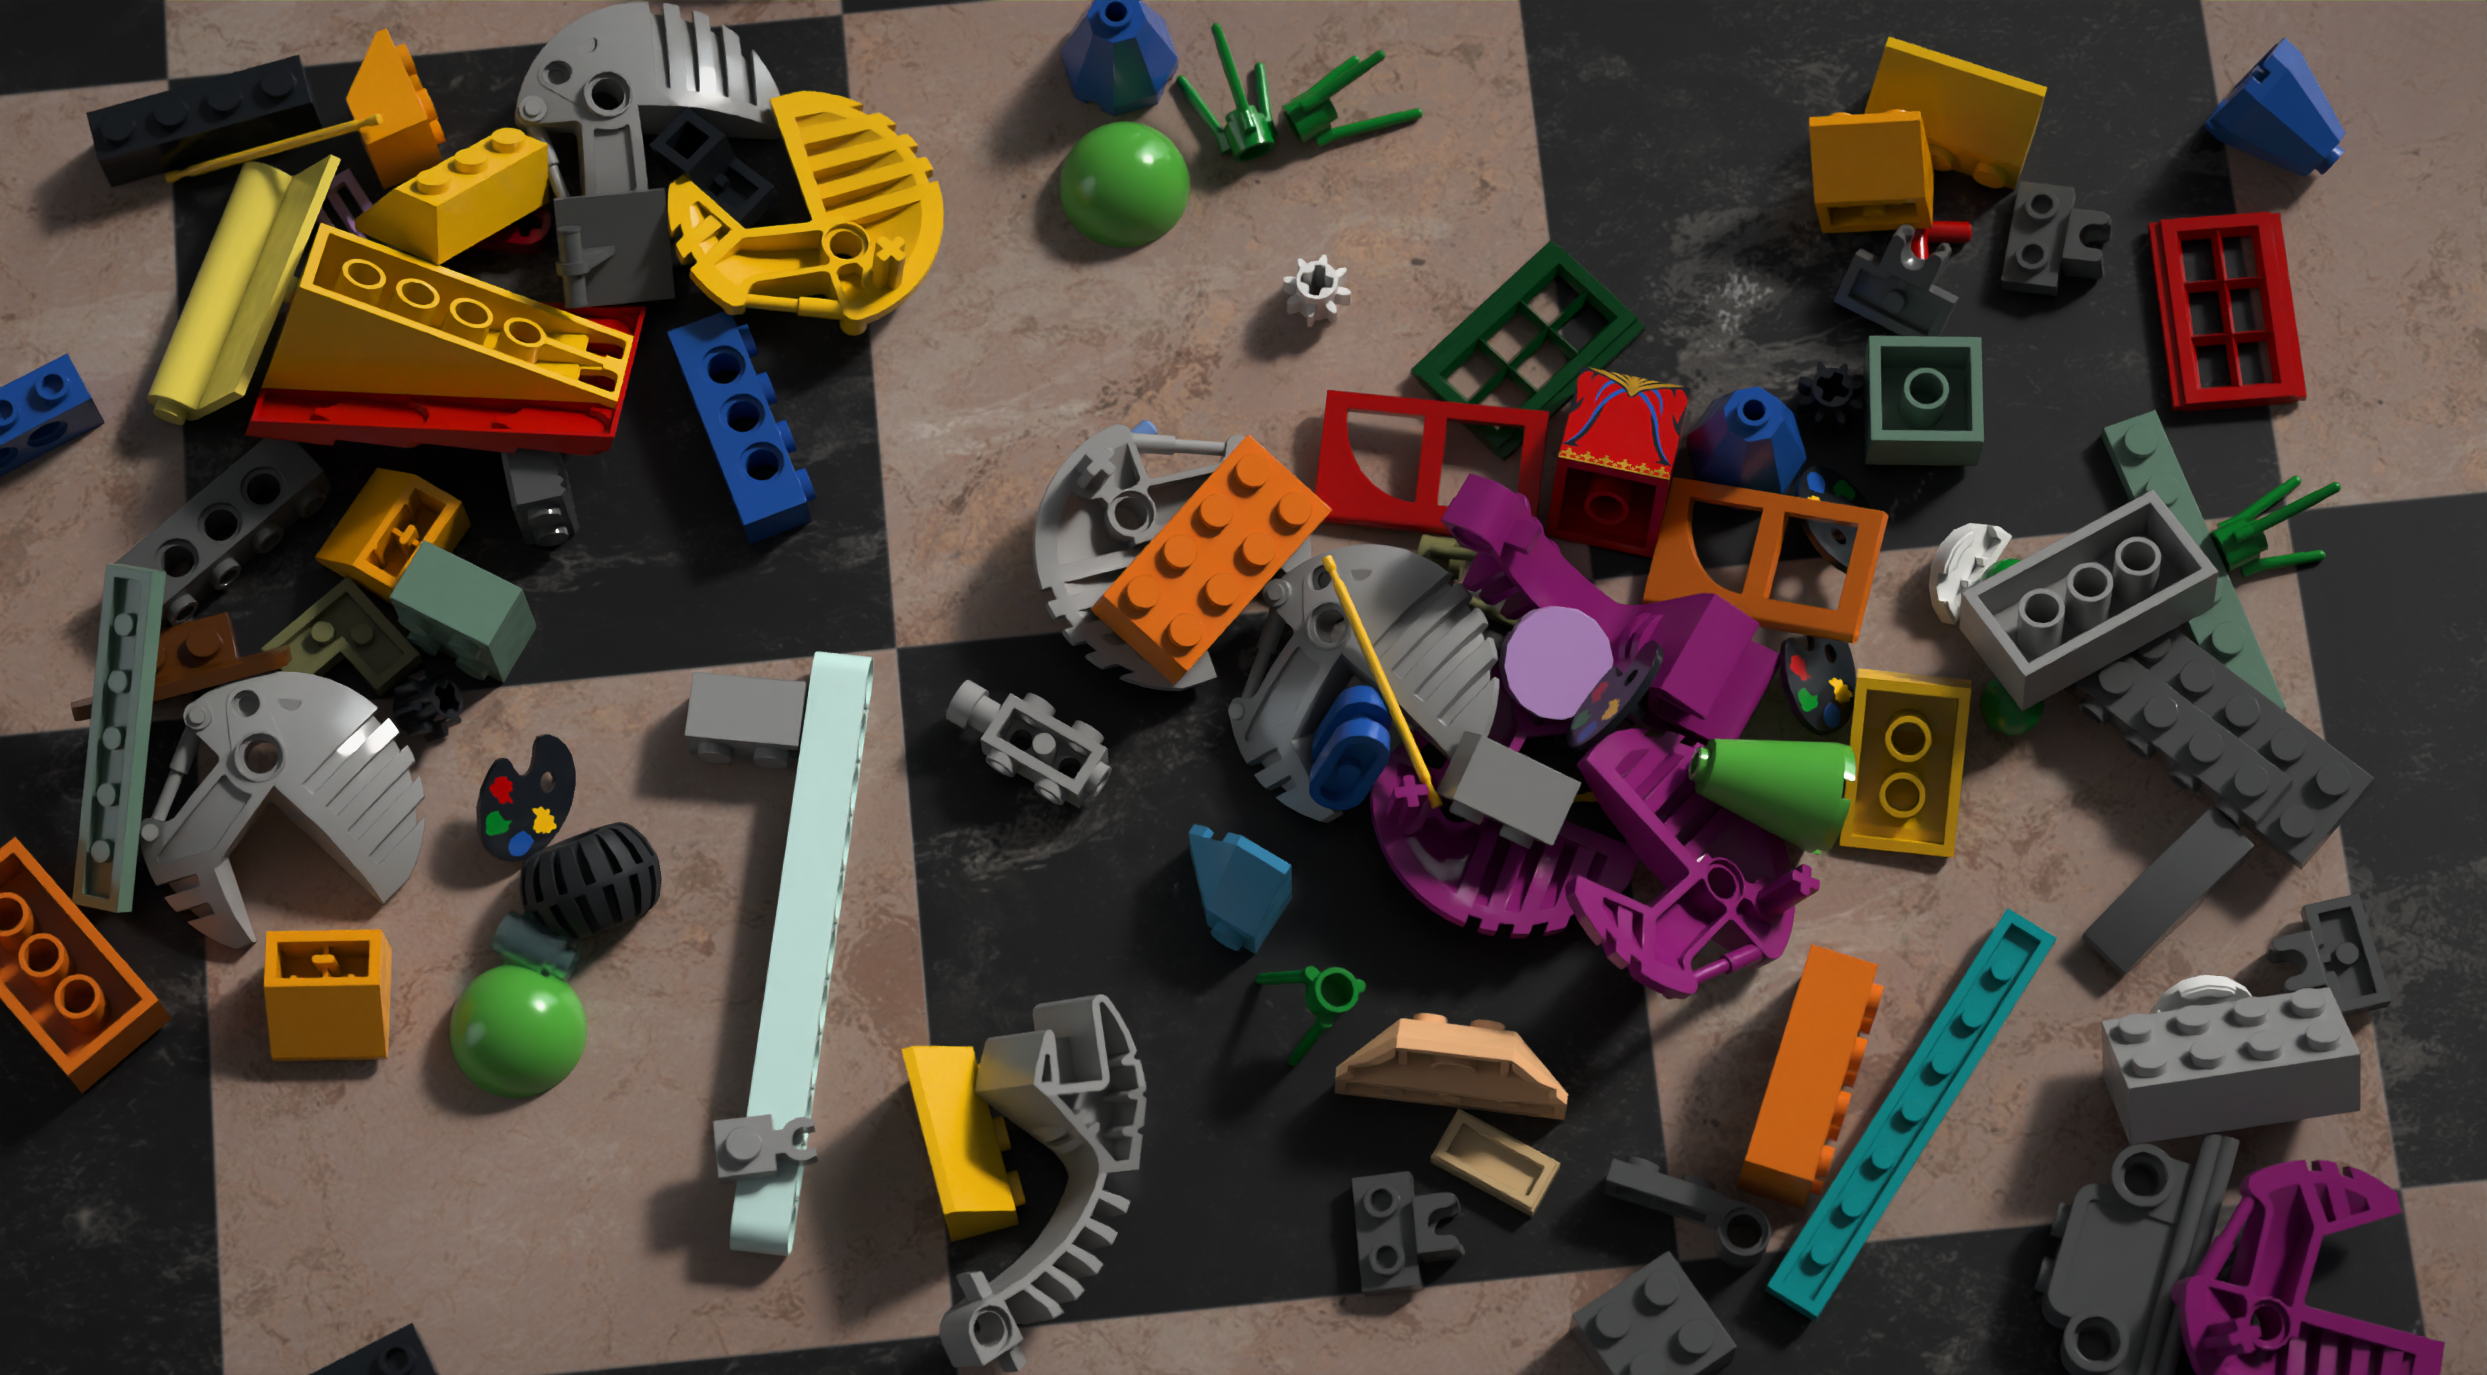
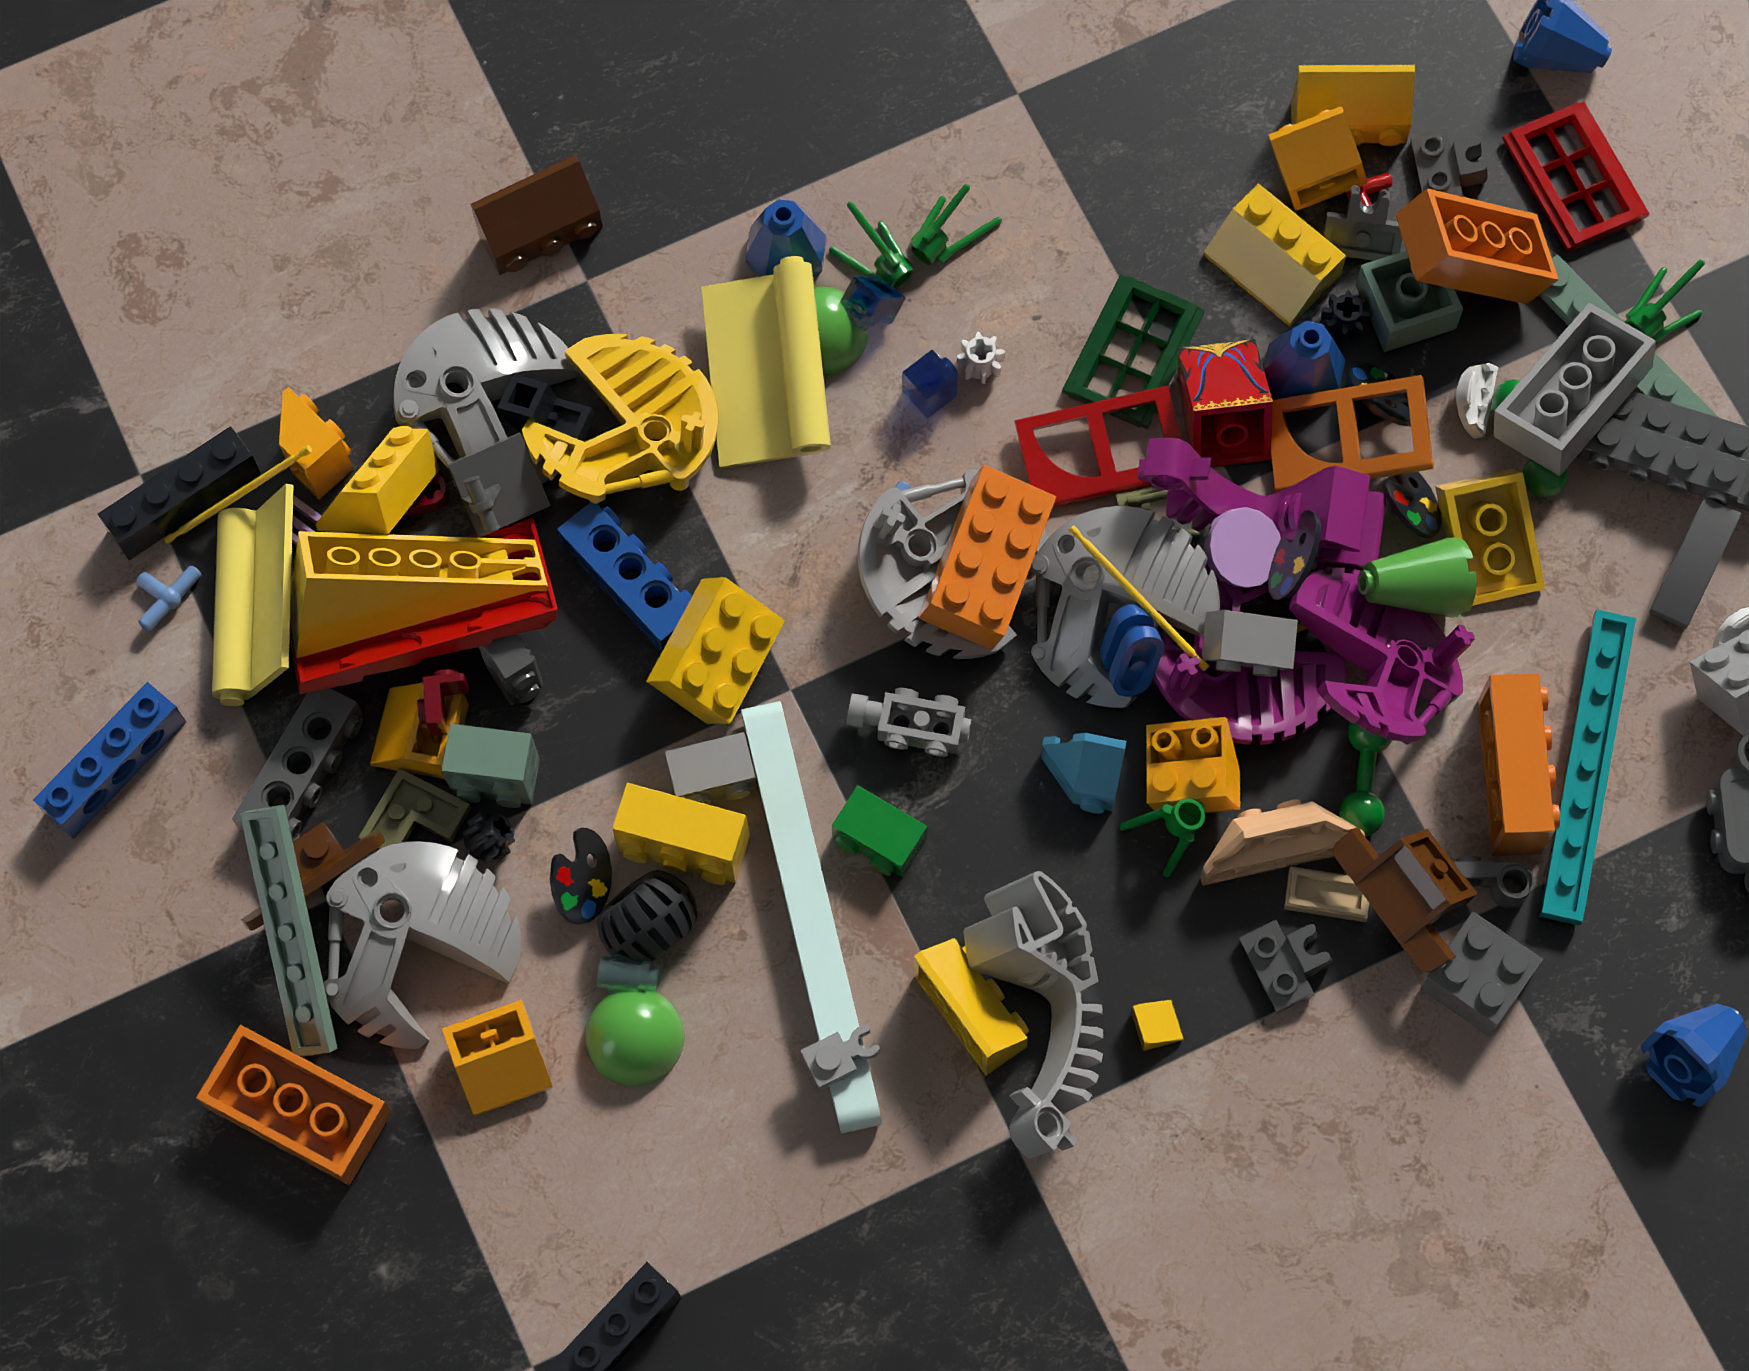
camera: 20 degrees left, 0 degrees up
(140, 253) = (167, 597): none -> medium blue piece
(411, 511) = (433, 707): none -> dark red bracket
(671, 787) = (681, 834): none -> yellow brick
(810, 562) = (716, 650): none -> yellow brick
(933, 874) = (878, 832): none -> green brick
(1025, 207) = (766, 366): none -> light yellow door
(1198, 167) = (871, 301): none -> brick
(1199, 1253) = (1156, 1024): none -> yellow slope
(1236, 302) = (930, 383): none -> clear blue brick
(1376, 927) = (1192, 762): none -> light orange slope
(1583, 1064) = (1362, 806): none -> green piece
(1592, 1190) = (1408, 889): none -> reddish brown plate
(1767, 284) = (1275, 255): none -> yellow slope
(2033, 363) = (1476, 246): none -> orange brick

